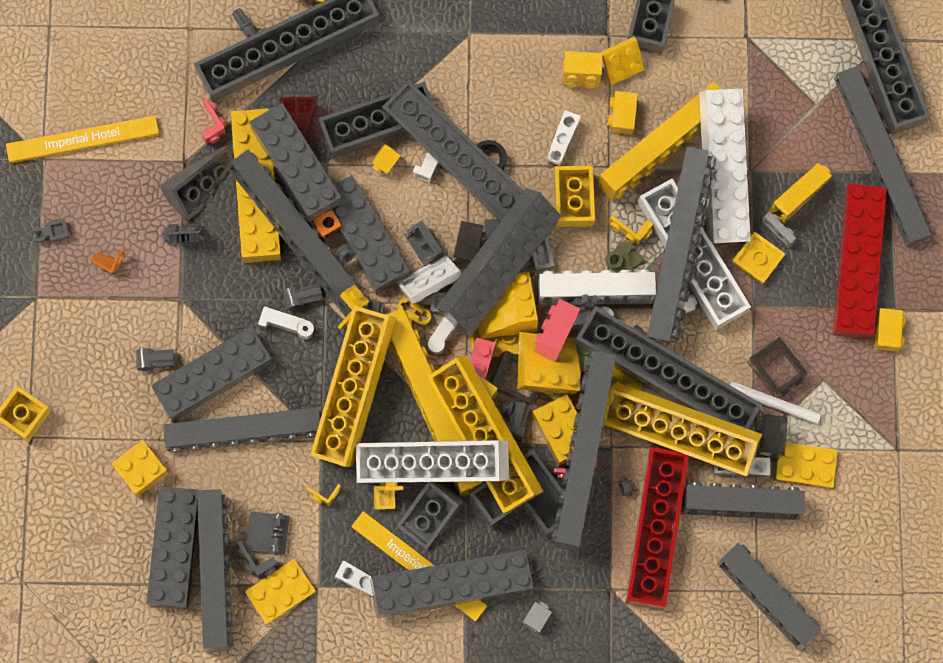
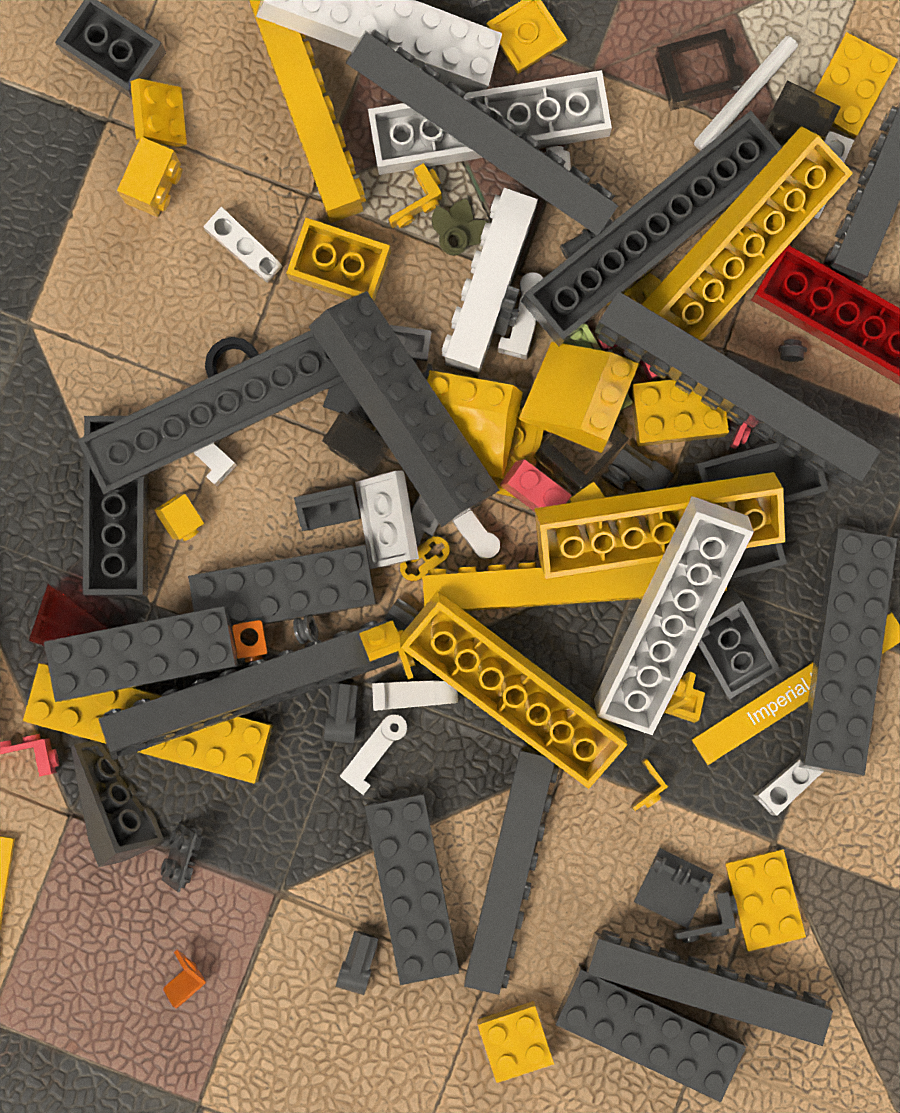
camera: 60 degrees left, 10 degrees up
(55, 230) = (108, 1044): dark grey plate -> none
(328, 331) = (412, 694): none -> white leg
(556, 329) = (537, 363): coral brick -> none
(623, 112) = (236, 143): yellow brick -> none

